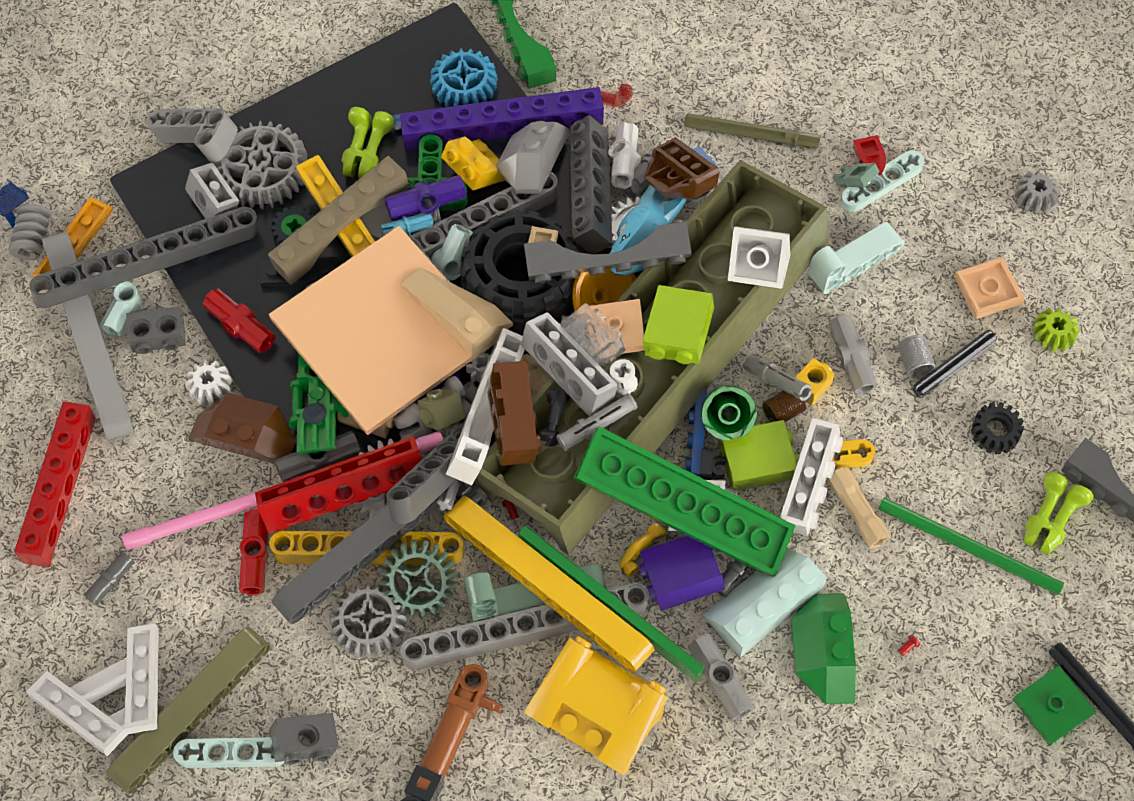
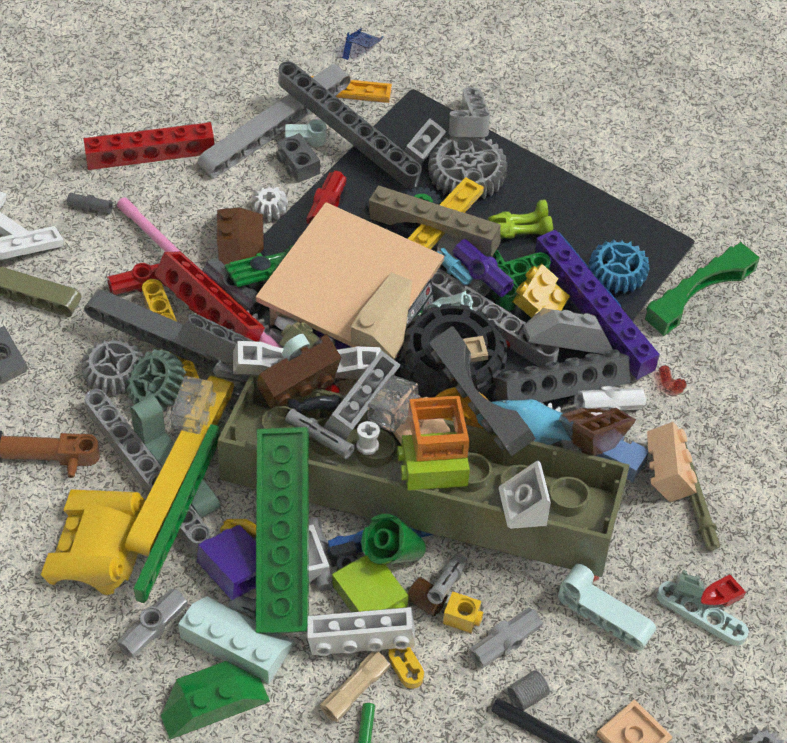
camera: 65 degrees right, 10 degrees down
(29, 231) = (344, 58): light grey piece -> none
(485, 405) = (293, 346): none -> light aqua beam
(496, 554) = (192, 405): none -> clear brick
(656, 280) = (438, 446): none -> orange window
(717, 132) = (671, 462): none -> light nougat wedge

